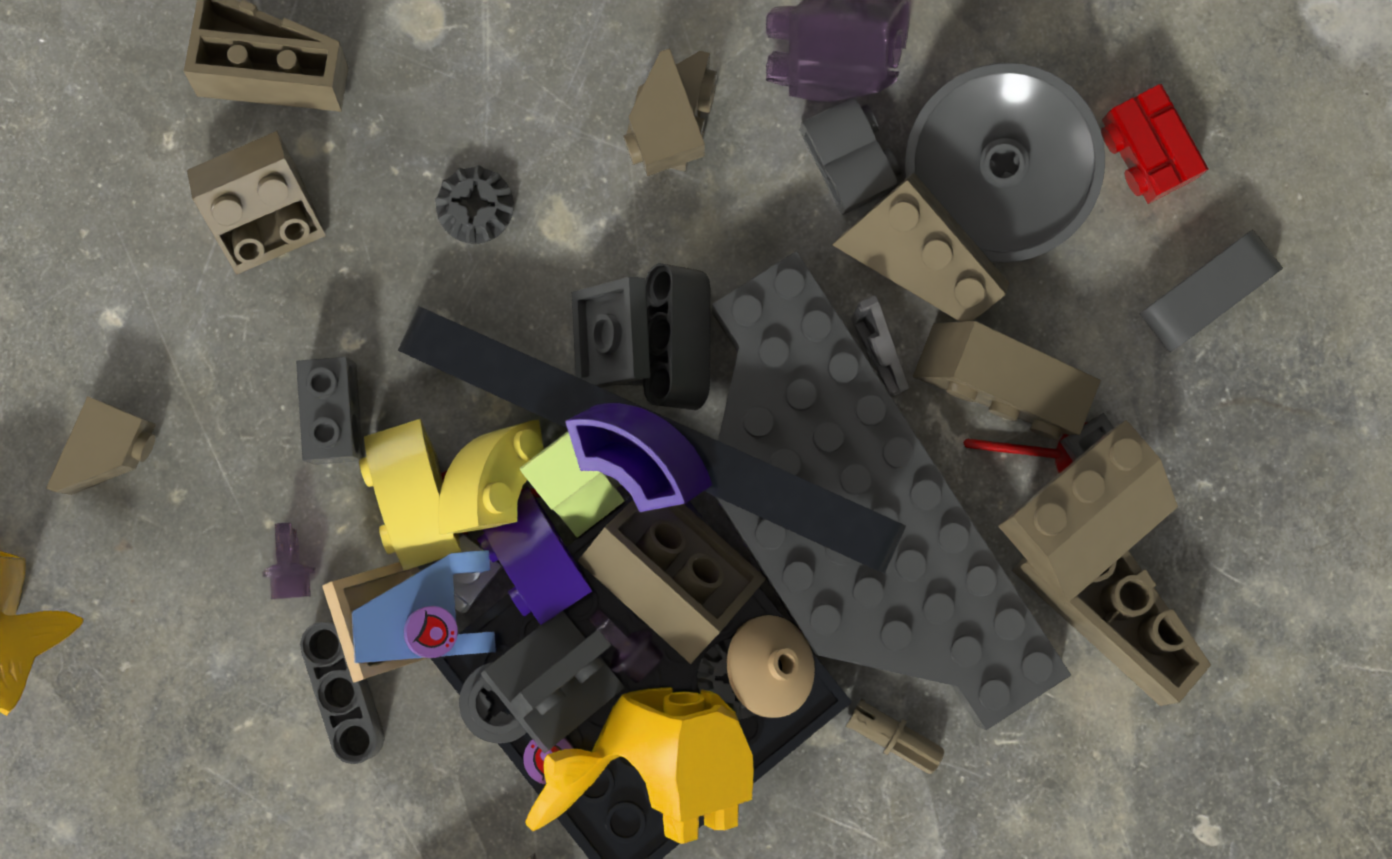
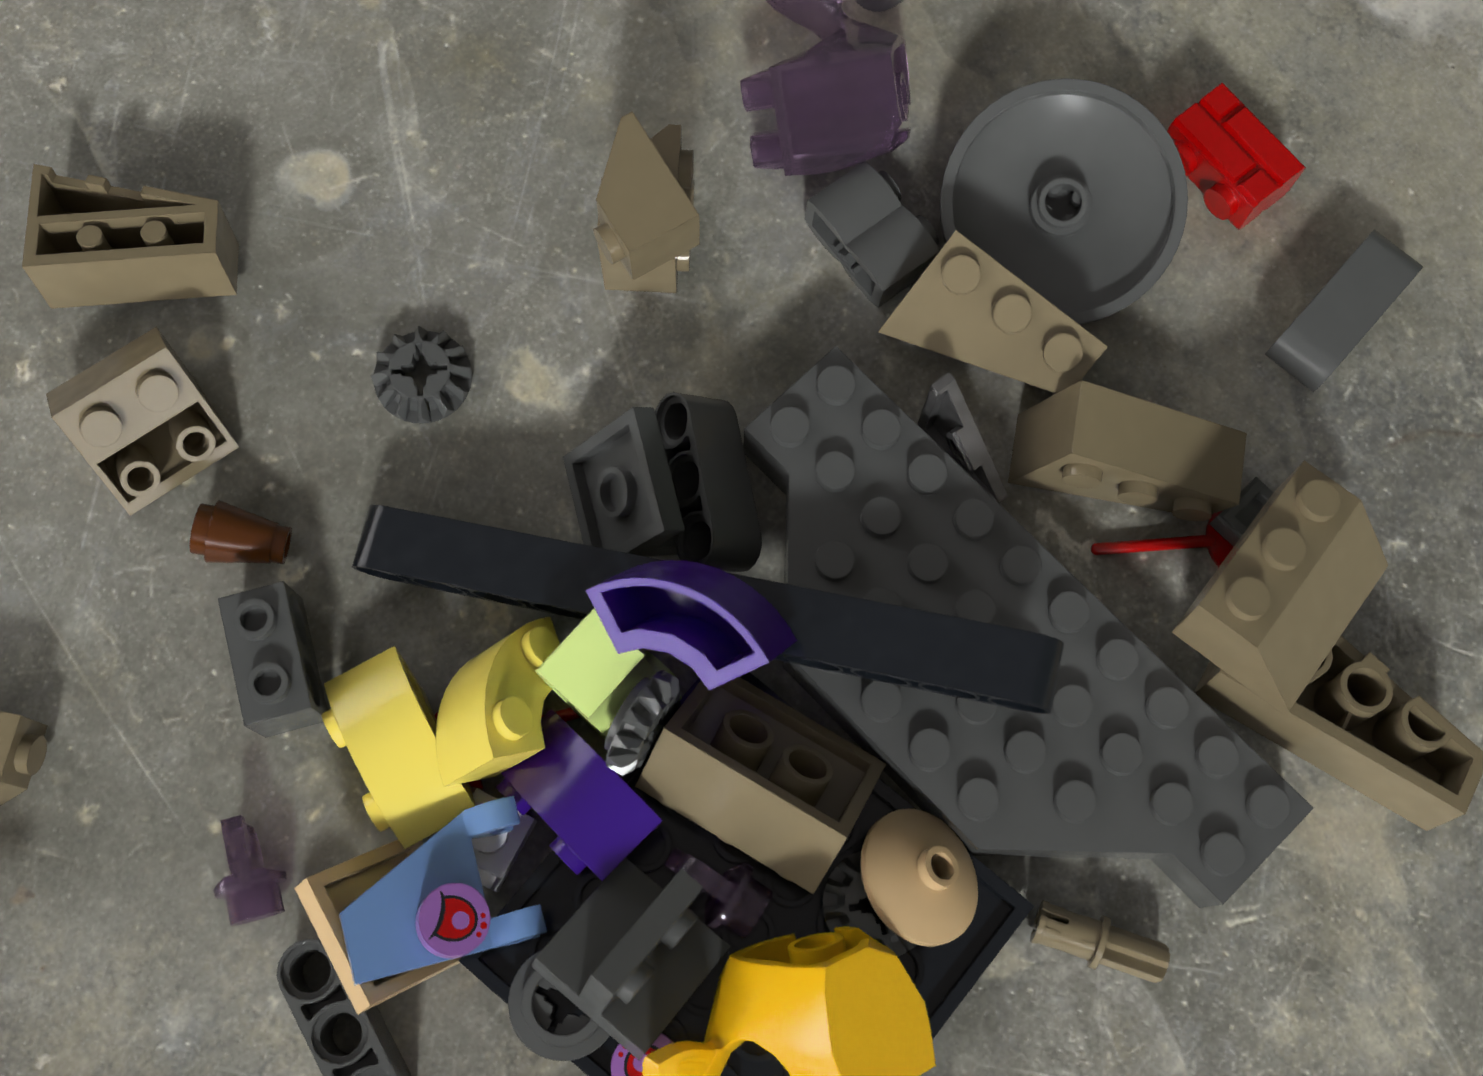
camera: 15 degrees left, 10 degrees down
(316, 309) = (237, 536): none -> reddish brown cone
(590, 518) = (641, 721): none -> dark grey gear

